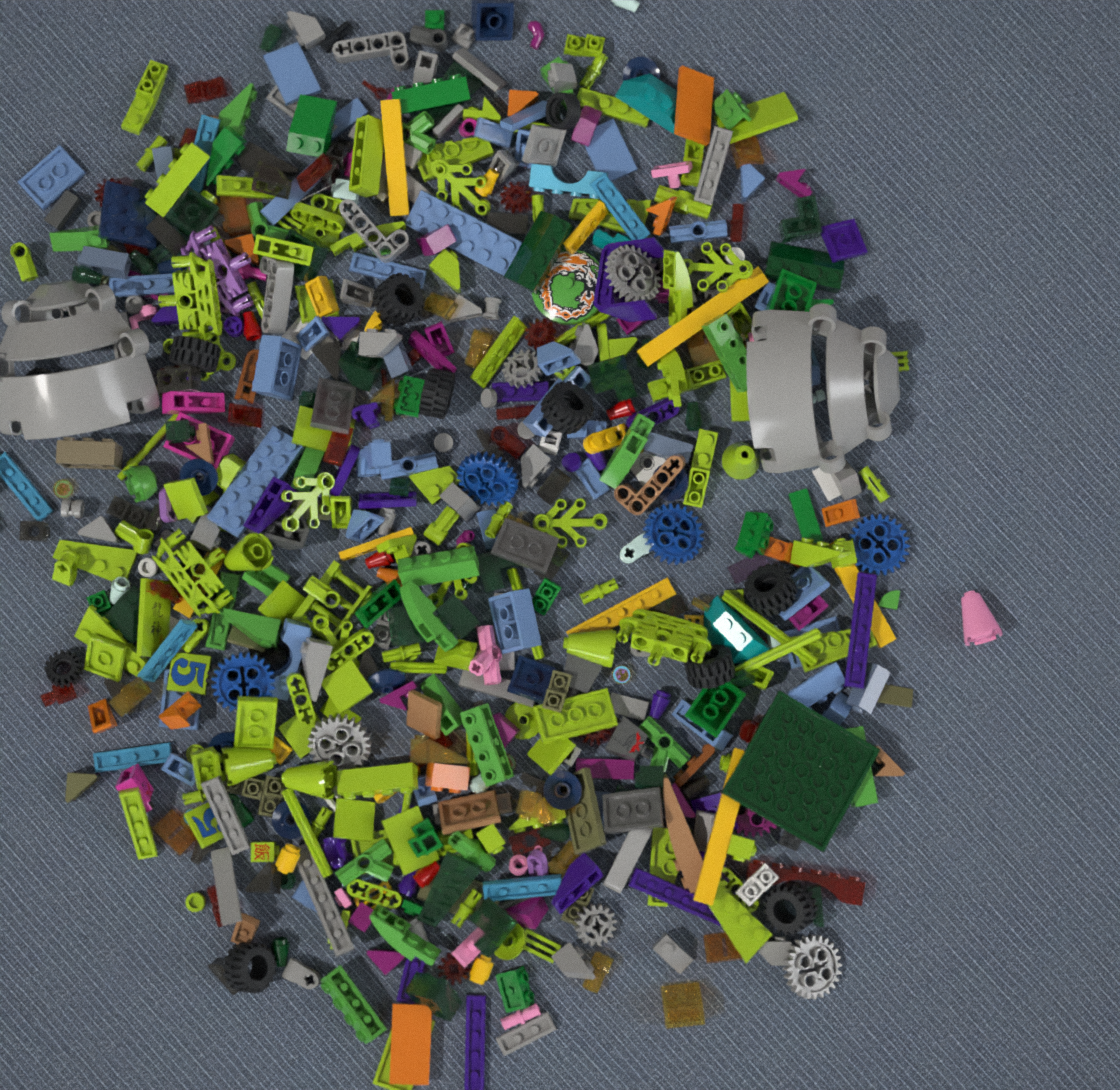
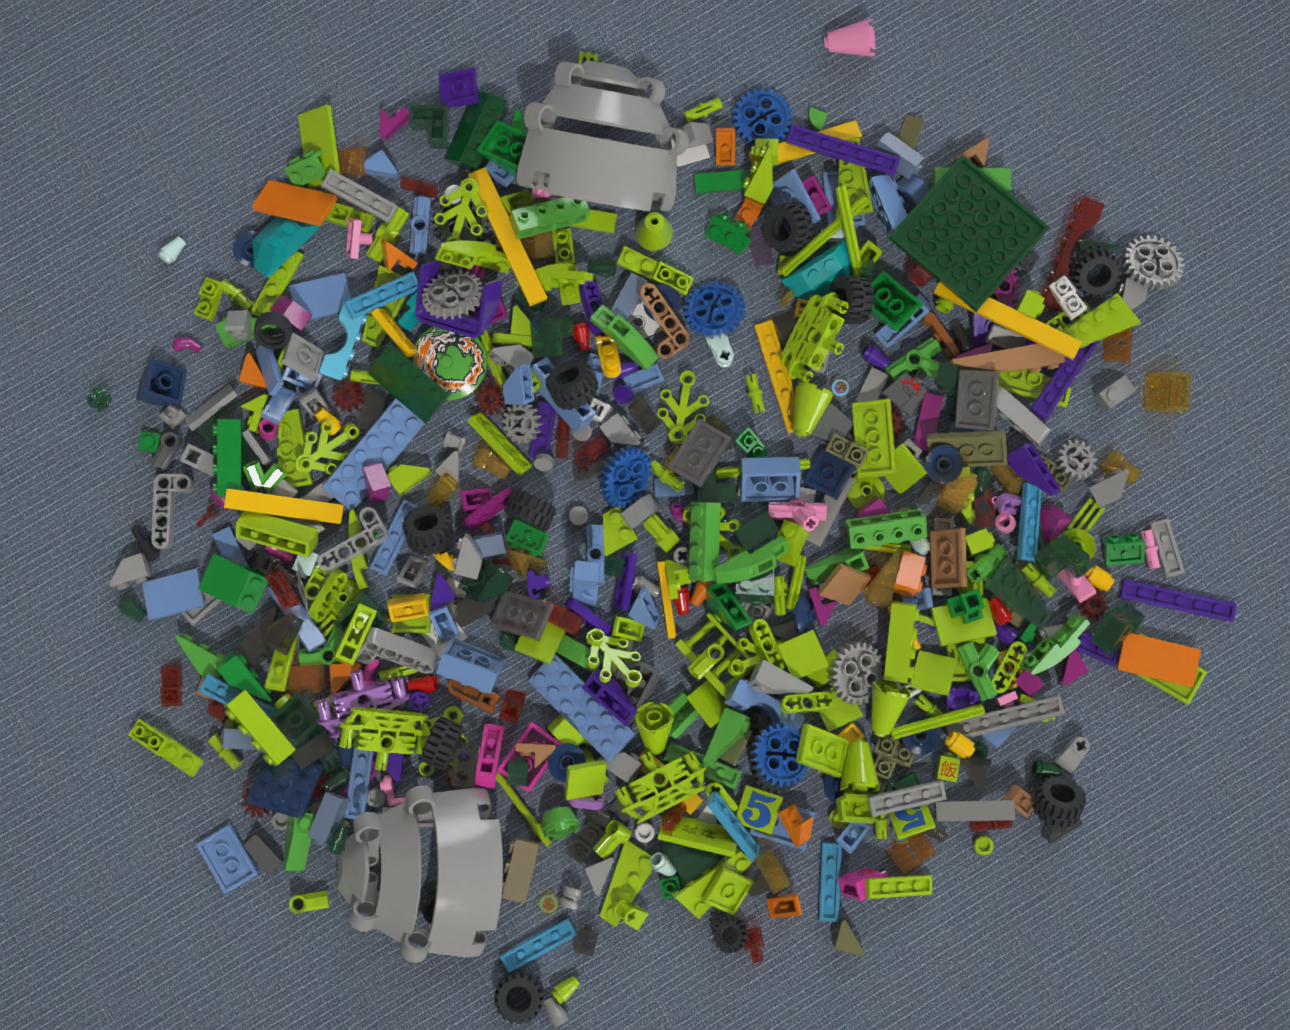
camera: 80 degrees left, 0 degrees up
(352, 1004) = (1112, 708): bright green brick -> none

